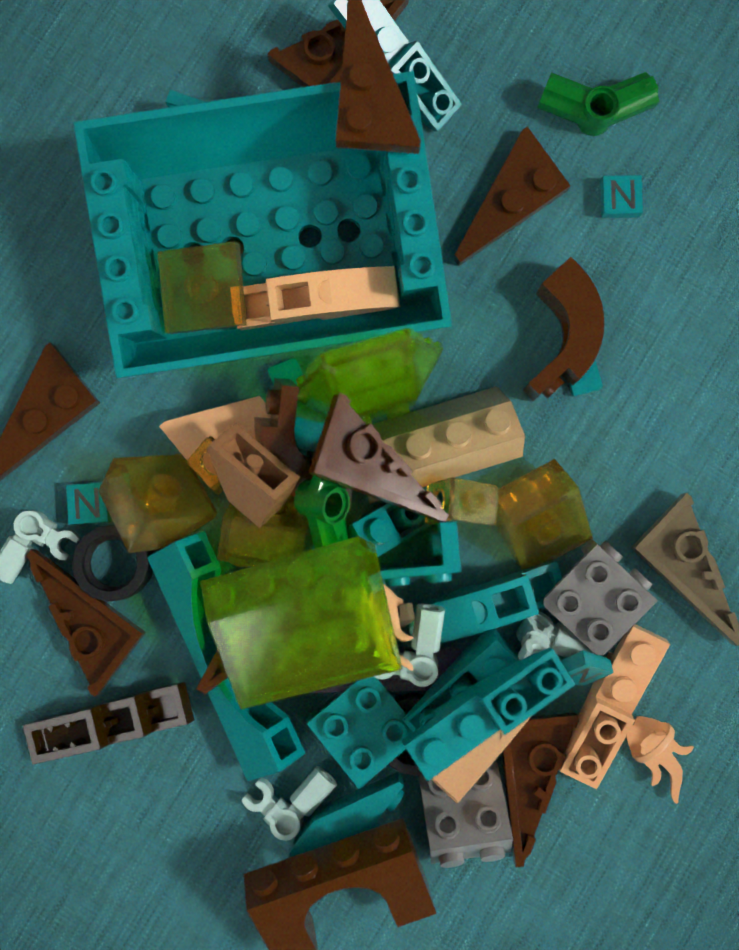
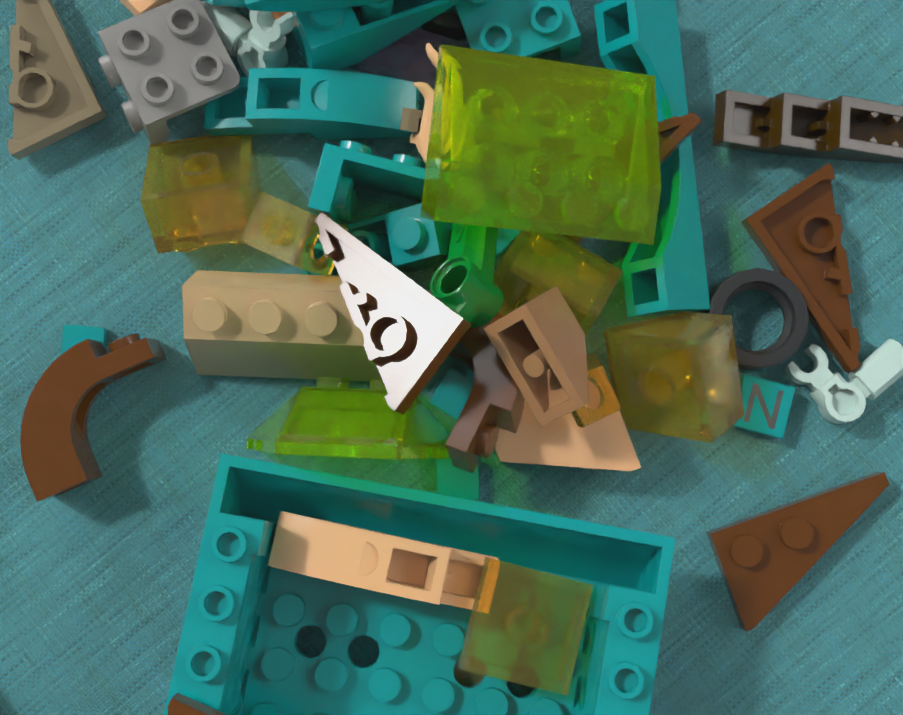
camera: 155 degrees left, 0 degrees up
(426, 641) = (396, 83): light aqua bar -> none
(520, 190) = (65, 620): reddish brown wing -> none

